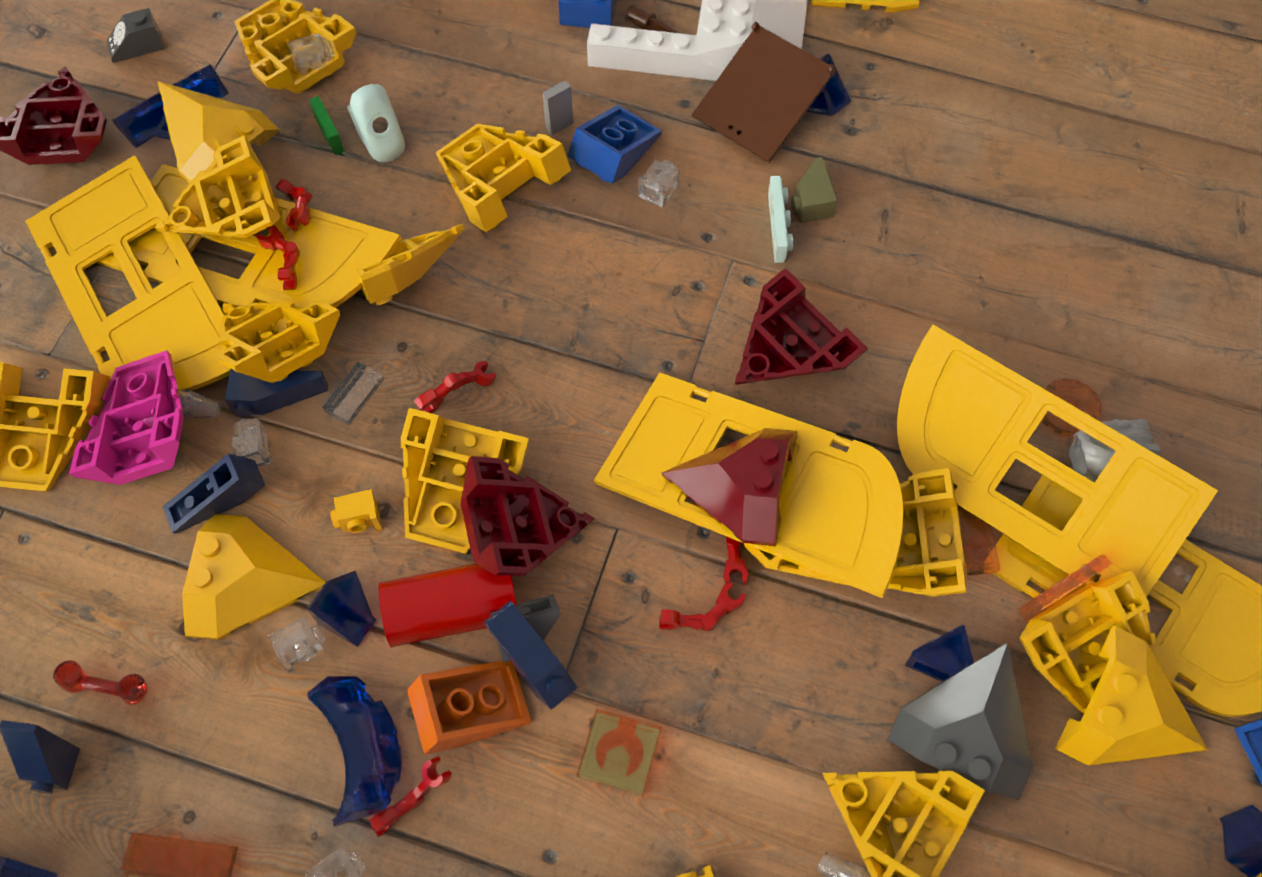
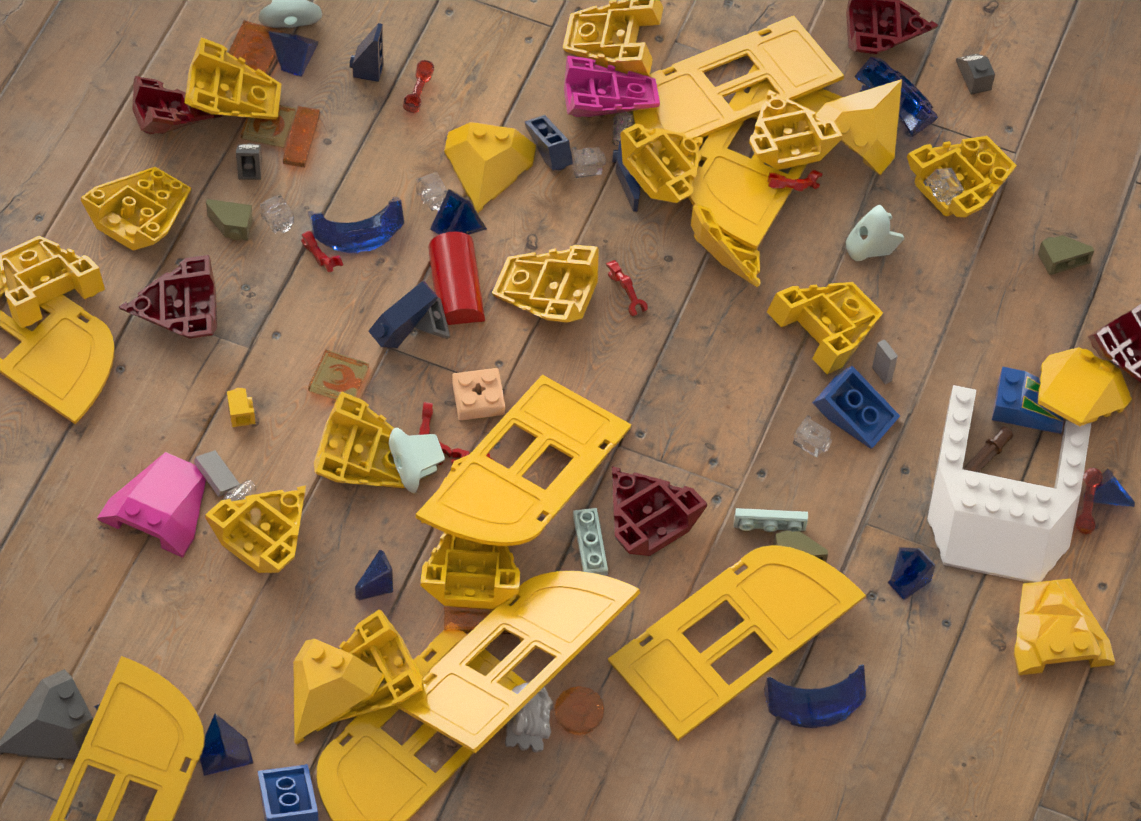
camera: 90 degrees right, 5 degrees down
(291, 254) = (720, 174): red piece -> none
(326, 125) = (888, 200): green tile -> none
(353, 393) = (628, 226): clear tile -> none
(356, 512) = (526, 226): yellow brick -> none
(467, 705) = (376, 284): orange slope -> none
(513, 519) = (504, 313): dark red wedge -> none
(621, 569) = (474, 406): none -> light nougat brick
(741, 483) = (523, 446): dark red wedge -> none
(747, 702) = (356, 446): none -> yellow wedge
(760, 621) = (415, 456): none -> light aqua piece
(763, 92) = (900, 517): reddish brown door -> none
(852, 405) = (591, 553): none -> light aqua tile
(894, 198) = (780, 597): none -> yellow door
(971, 726) = (321, 581): dark grey wedge -> none
(1005, 165) = (816, 706): none -> clear blue windscreen
(1064, 586) = (420, 656): clear orange tile -> none

